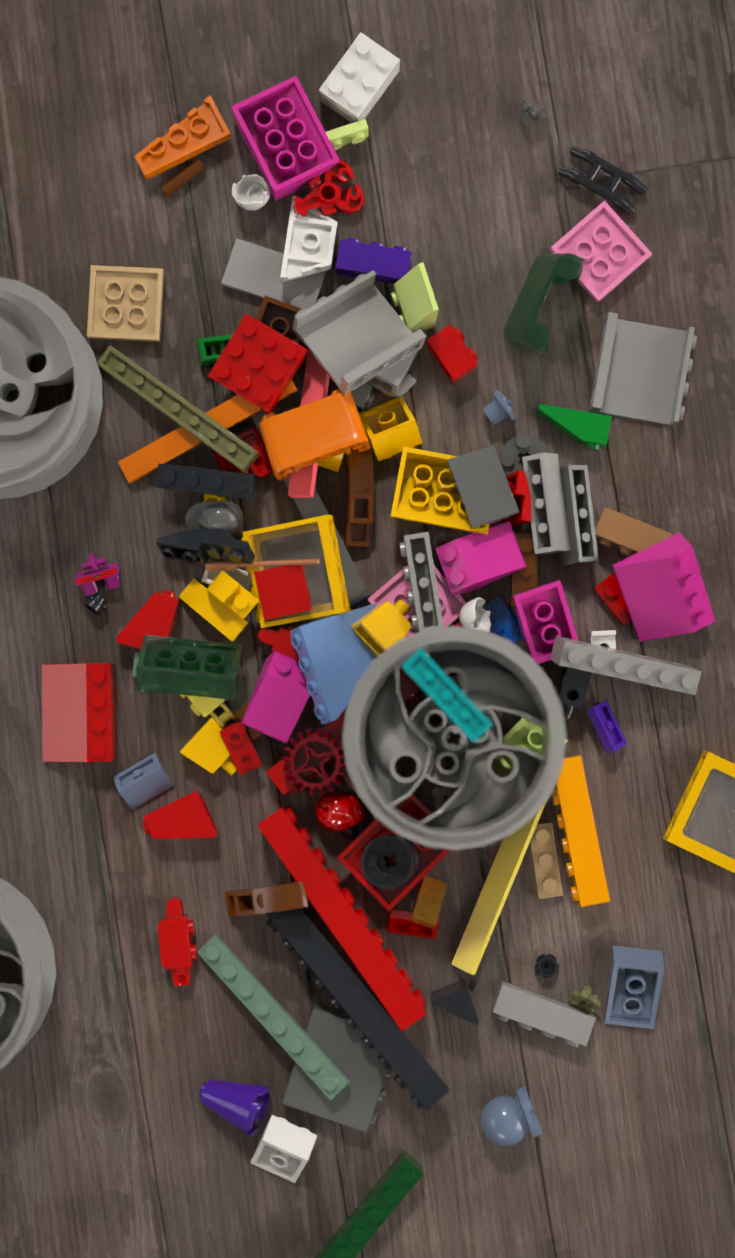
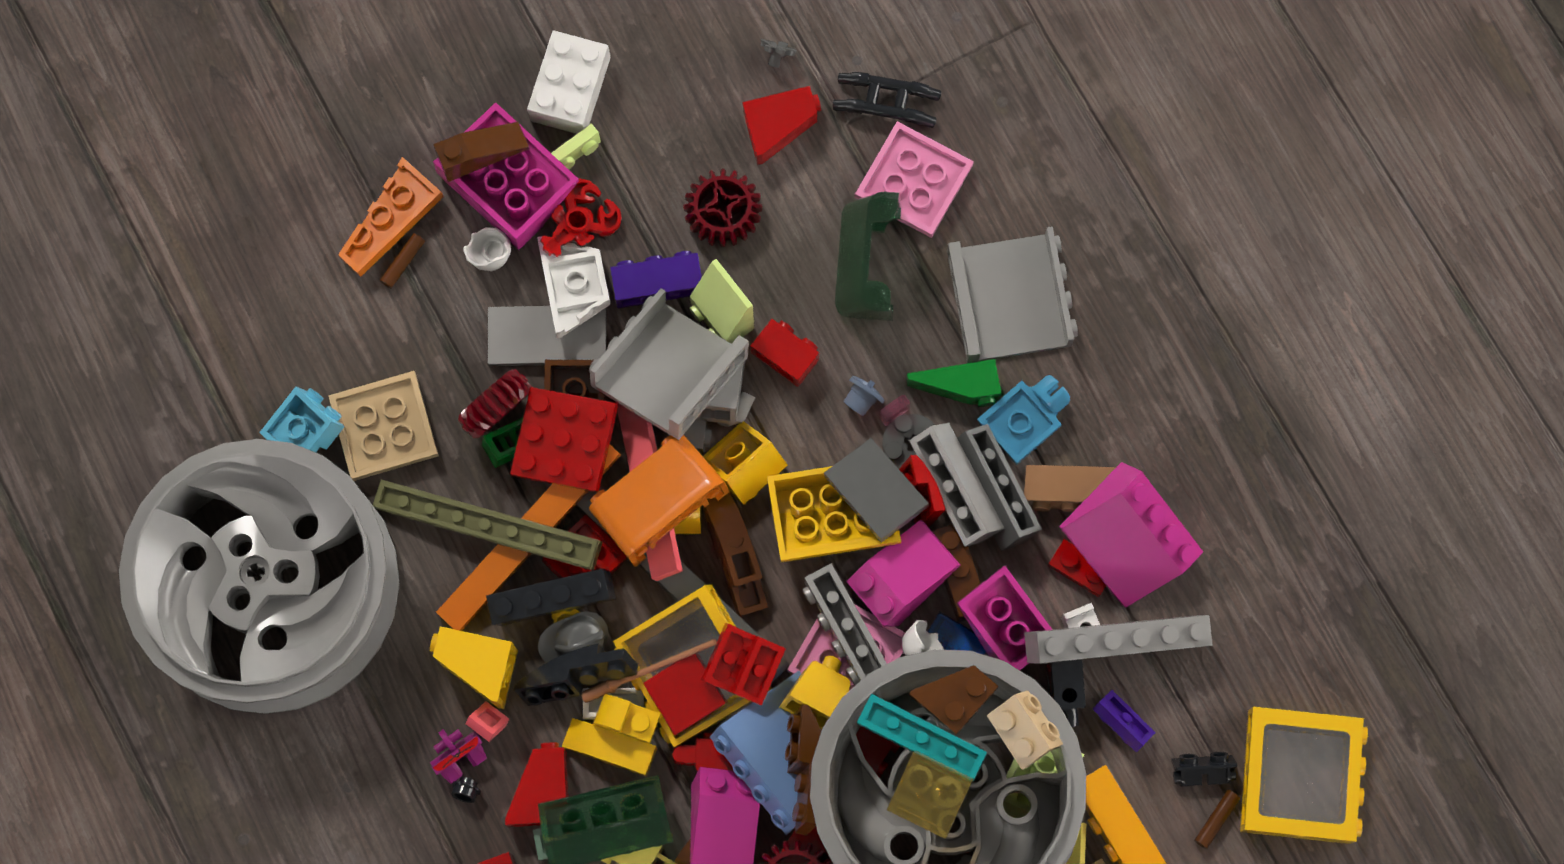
camera: 15 degrees left, 10 degrees down
(64, 280) = (304, 421): none -> medium azure plate
(128, 558) = (487, 721): none -> coral plate
(135, 512) = (478, 661): none -> yellow slope
(214, 316) = (494, 403): none -> dark red gear
(270, 108) = (479, 149): none -> reddish brown slope
(334, 585) = (743, 664): none -> red slope
(352, 669) = (799, 754): none -> reddish brown slope
(437, 740) = (930, 794): none -> clear yellow tile
(453, 222) = (712, 212): none -> dark red gear
(484, 673) = (955, 697): none -> reddish brown wing
(513, 167) = (779, 120): none -> red slope
(519, 428) = (894, 409): none -> clear pink tile
(528, 716) = (1025, 728): none -> tan bracket
(618, 469) = (1026, 416): none -> dark azure plate
(649, 824) = (1217, 819): none -> reddish brown piece
(664, 785) = (1216, 766): none -> black hinge

